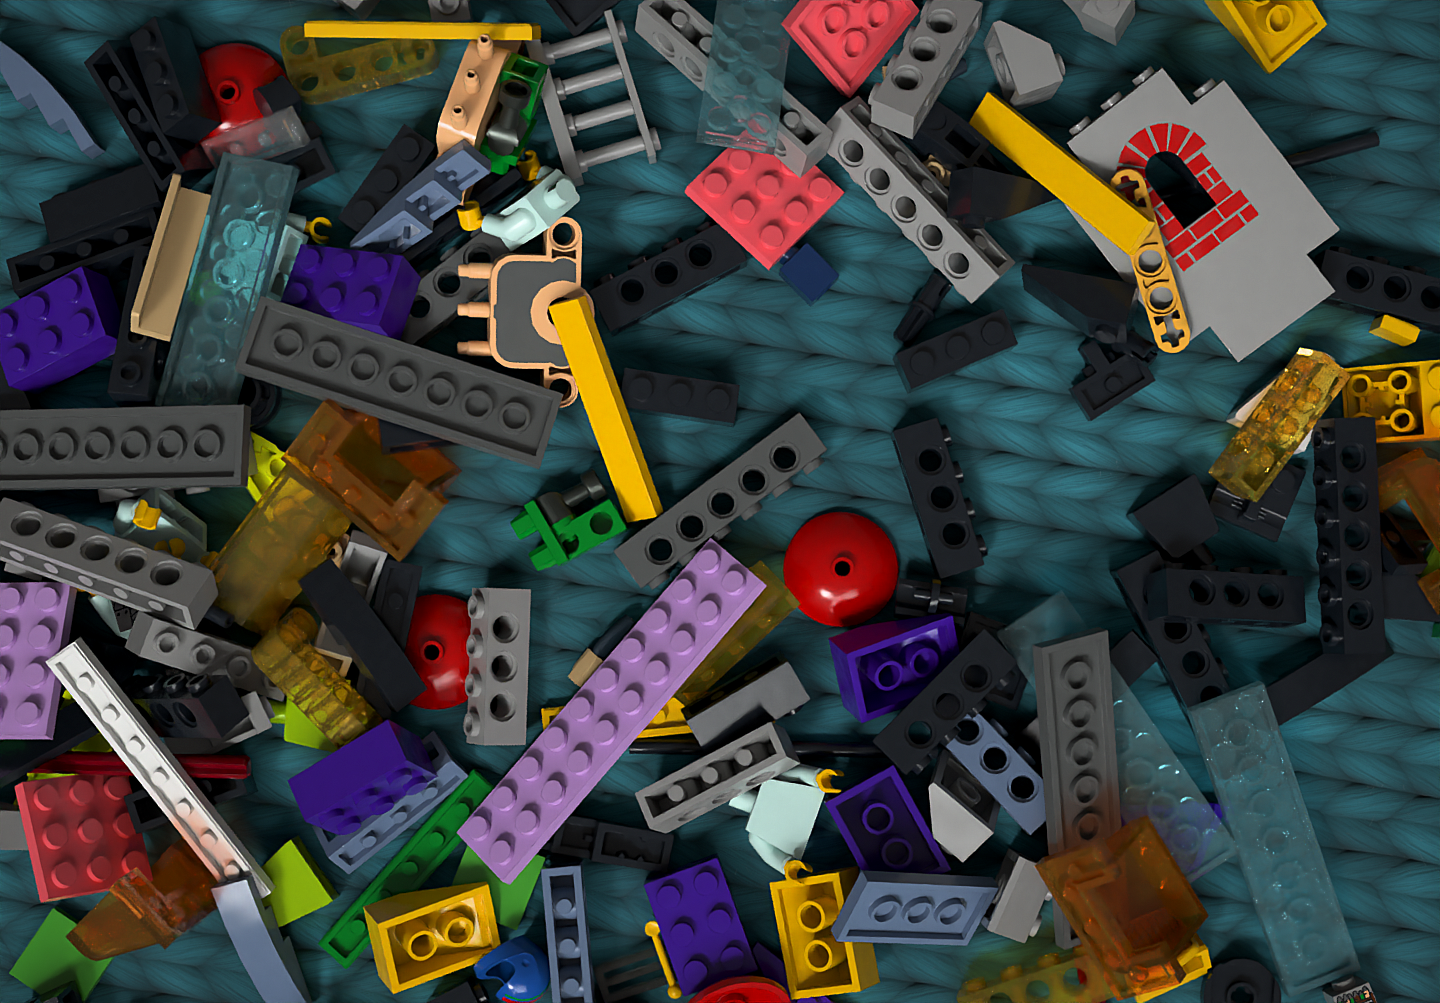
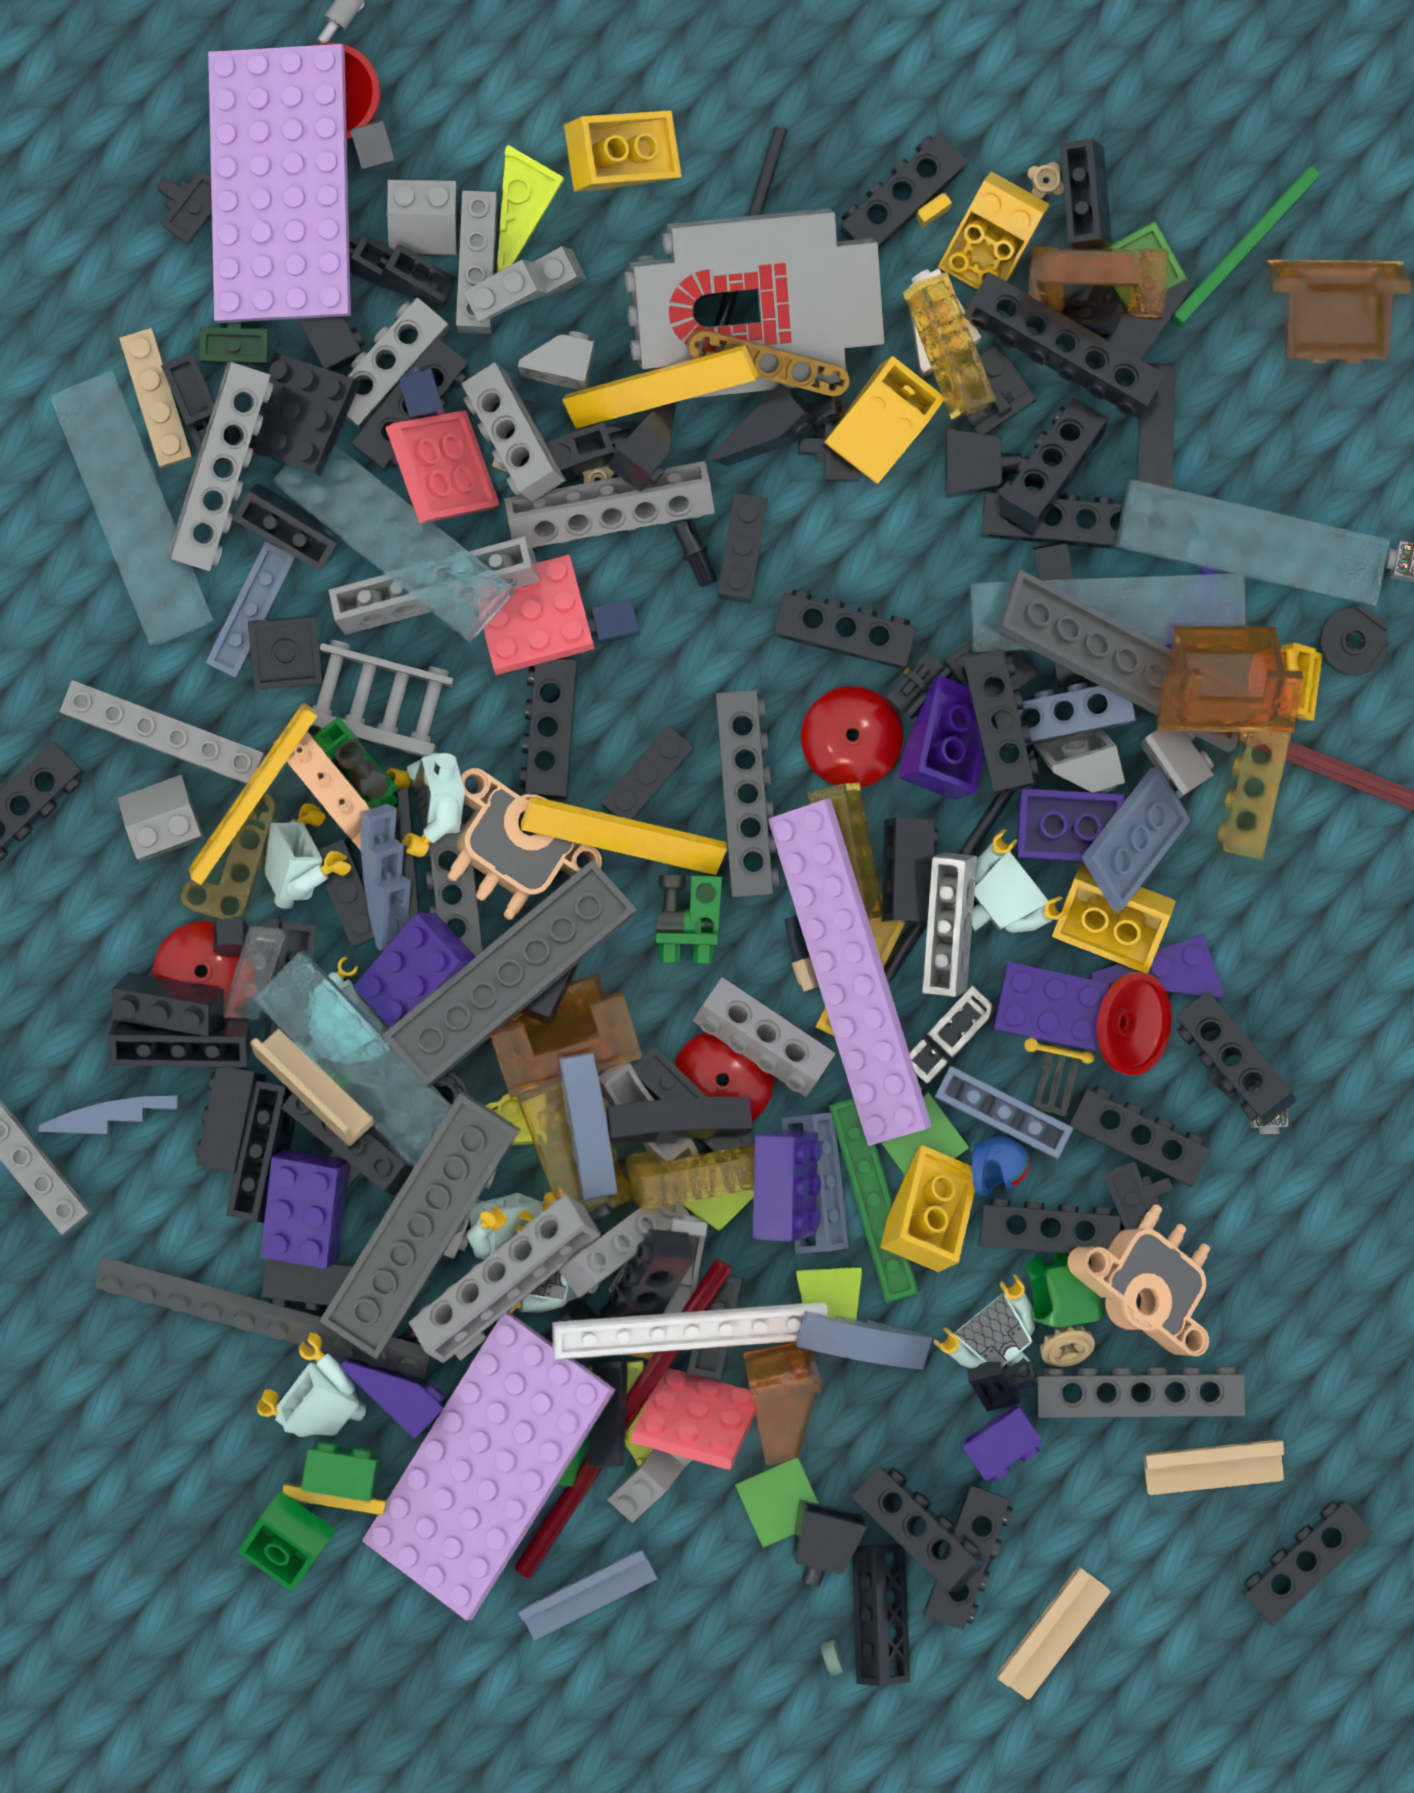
camera: 55 degrees left, 0 degrees up
(299, 550) = (587, 1125): none -> sand blue slope
(385, 114) = (294, 861): none -> light aqua torso
(1165, 408) = (884, 419): none -> yellow slope

